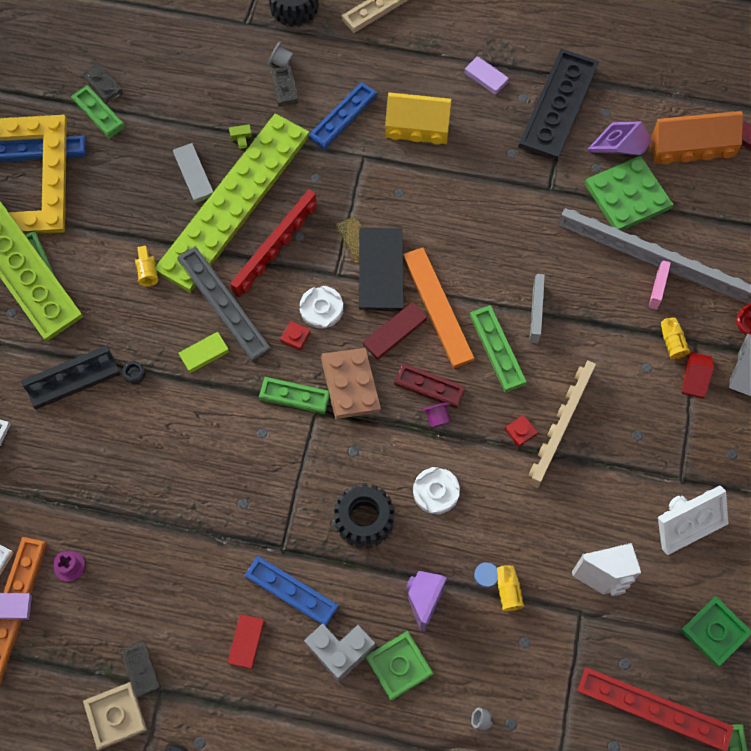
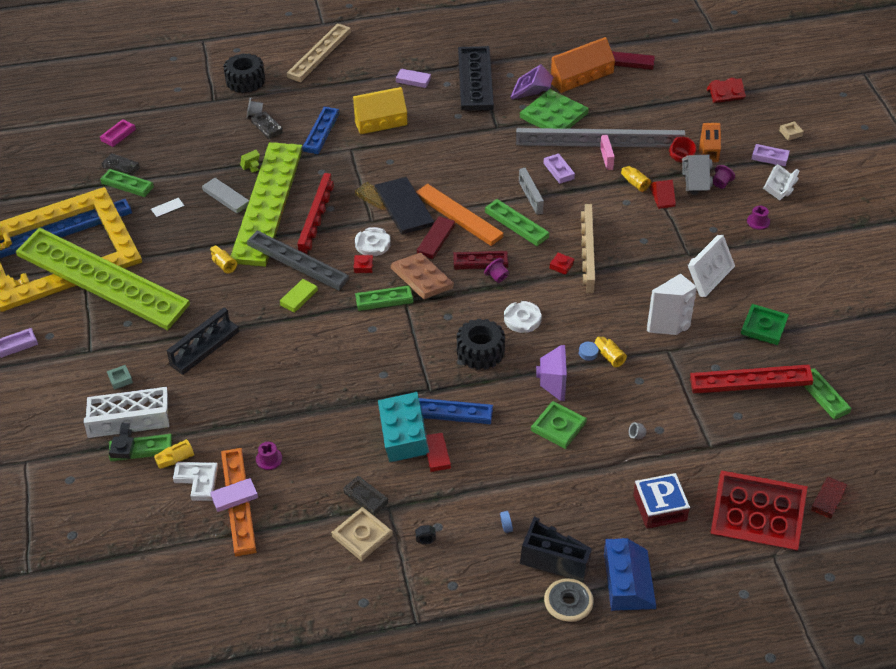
camera: 25 degrees left, 20 degrees down
(121, 34) = (117, 132): none -> dark pink tile
(125, 163) = (167, 207): none -> white sticker
(133, 372) = (251, 324): black tile -> none
(221, 596) = (403, 427): none -> teal brick
(340, 656) = (509, 430): light grey brick -> none
(589, 285) = (559, 168): none -> lavender plate

